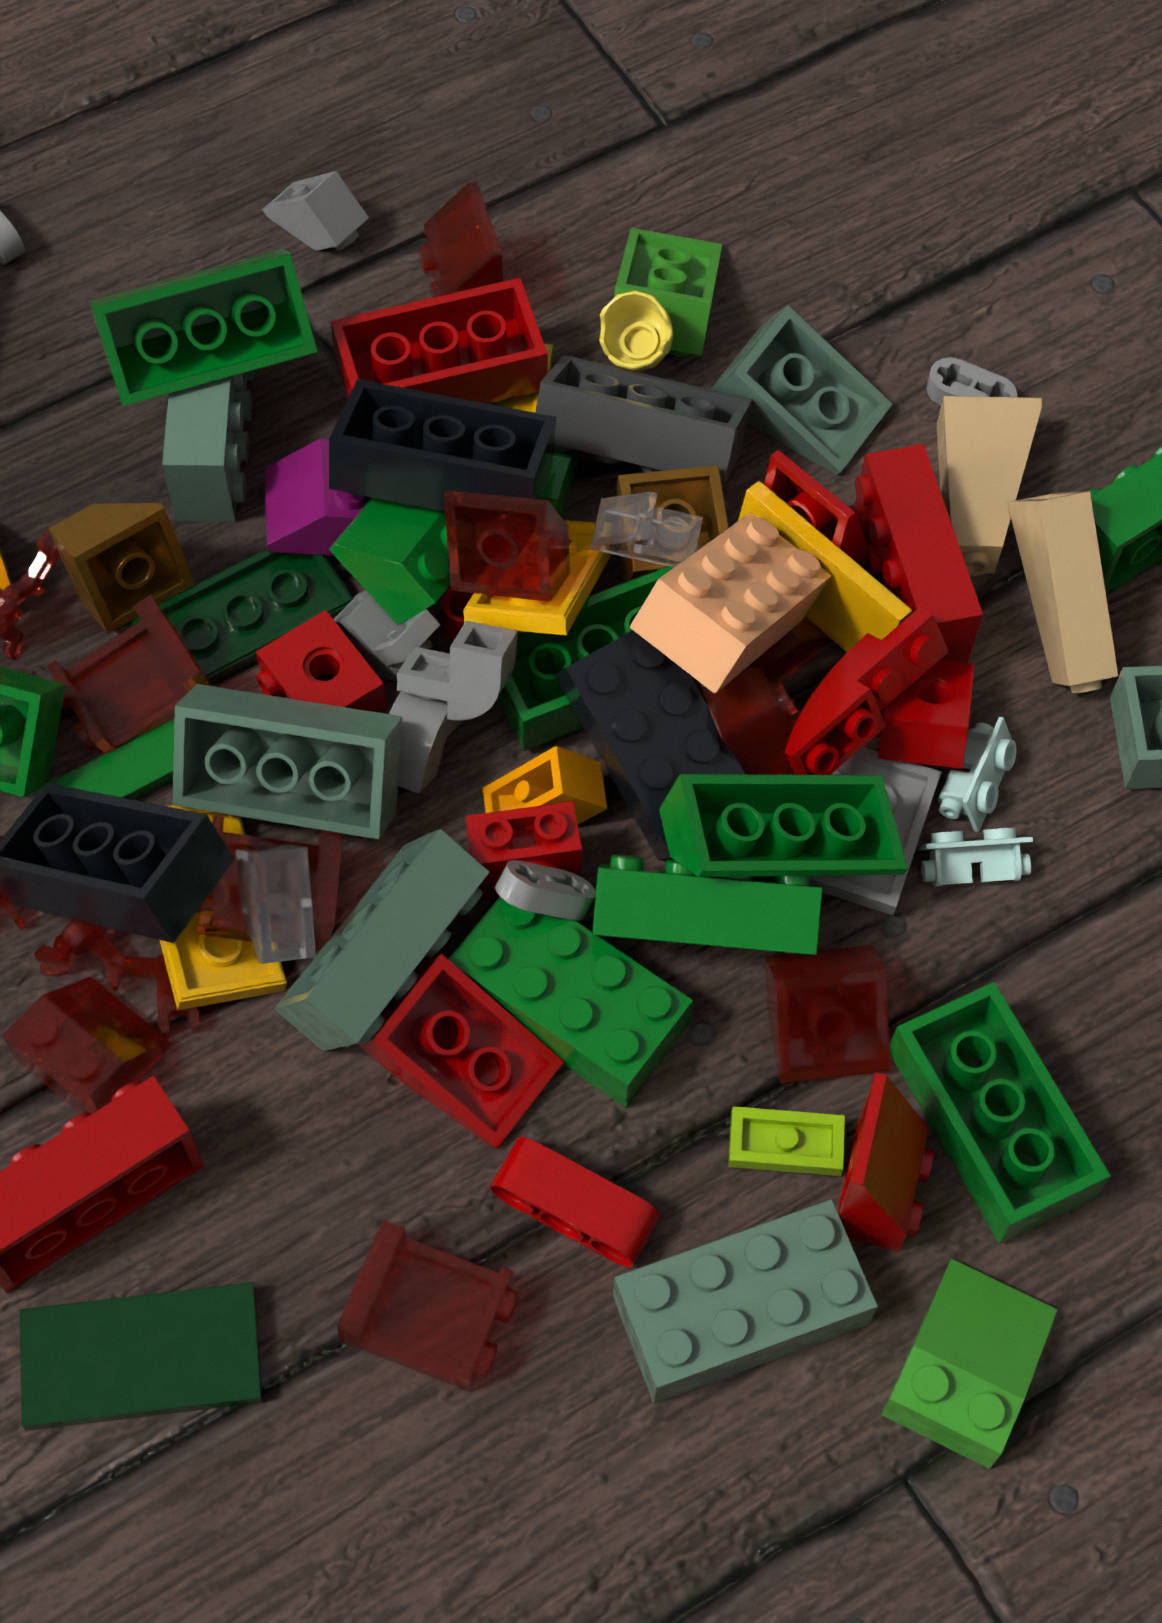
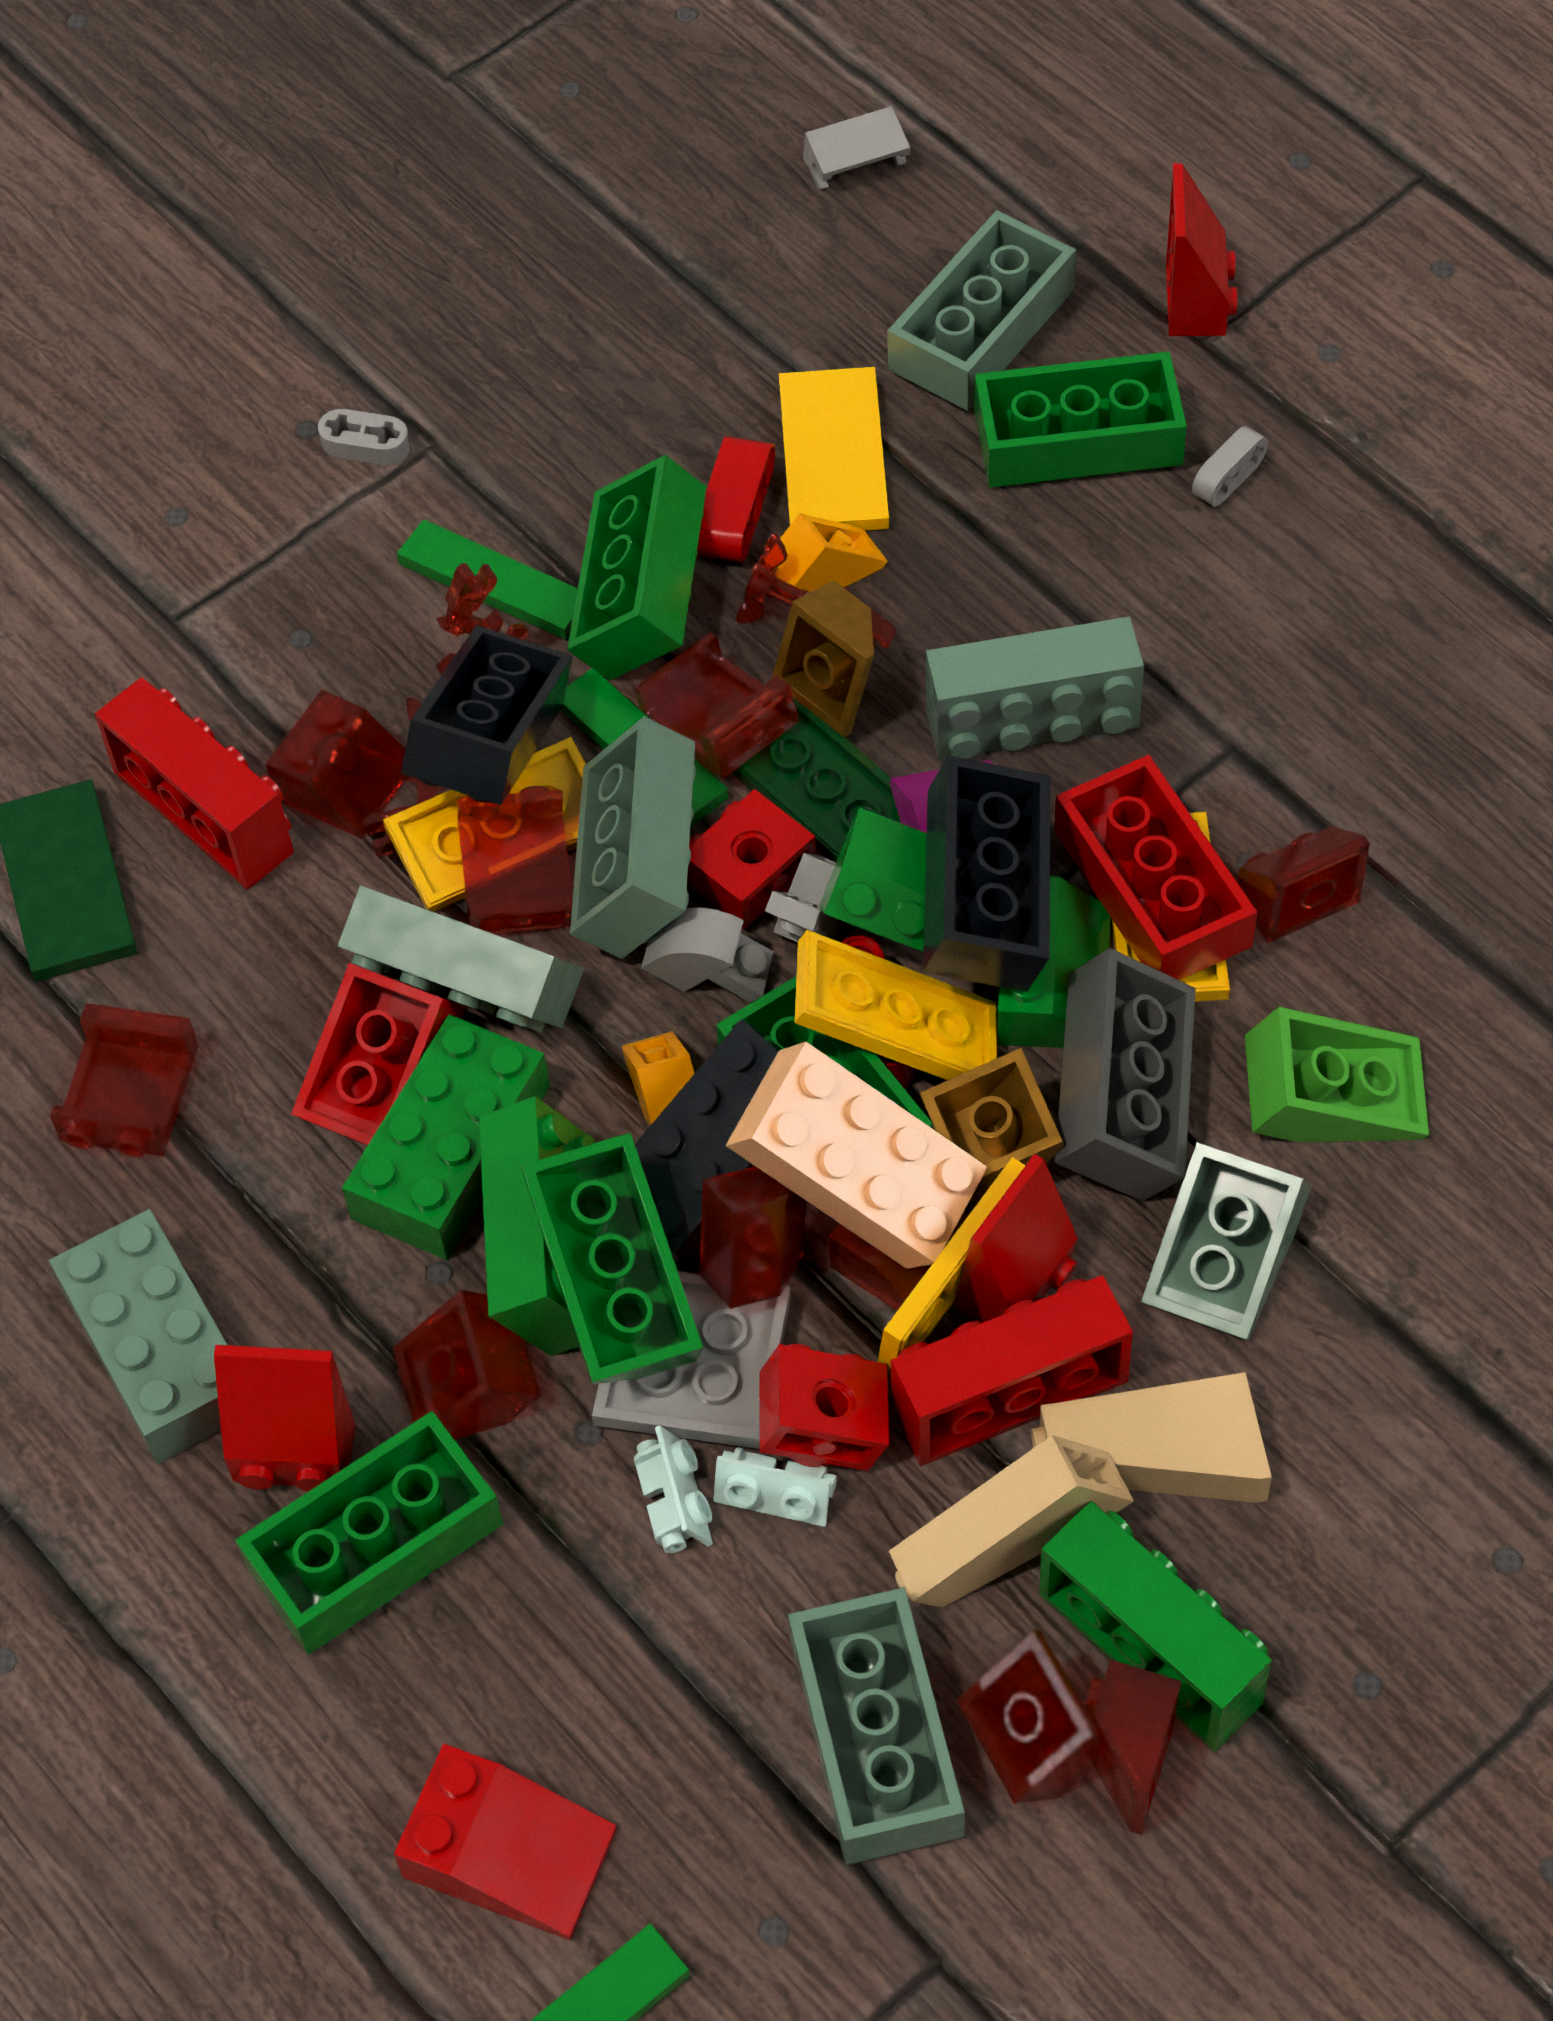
camera: 85 degrees right, 5 degrees down
(203, 326) = (1087, 635): green slope -> none
(277, 901) = (486, 861): clear slope -> none
(318, 212) = (1333, 737): light grey slope -> none
(468, 676) = (748, 949): light grey brick -> none
(506, 546) = (879, 948): clear red slope -> none
(533, 834) = (586, 1065): red brick -> none
(545, 890) = (532, 1071): light grey beam -> none
(575, 1202) = (238, 1182): red beam -> none
(635, 331) = (1231, 1043): light yellow hair -> none
(640, 531) = (958, 1088): clear slope -> none
(786, 1141) = (329, 1327): lime plate -> none
(850, 698) = (788, 1304): red slope -> none
(969, 381) = (1302, 1425): light grey beam -> none
(971, 1364) = (117, 1547): bright green slope -> none

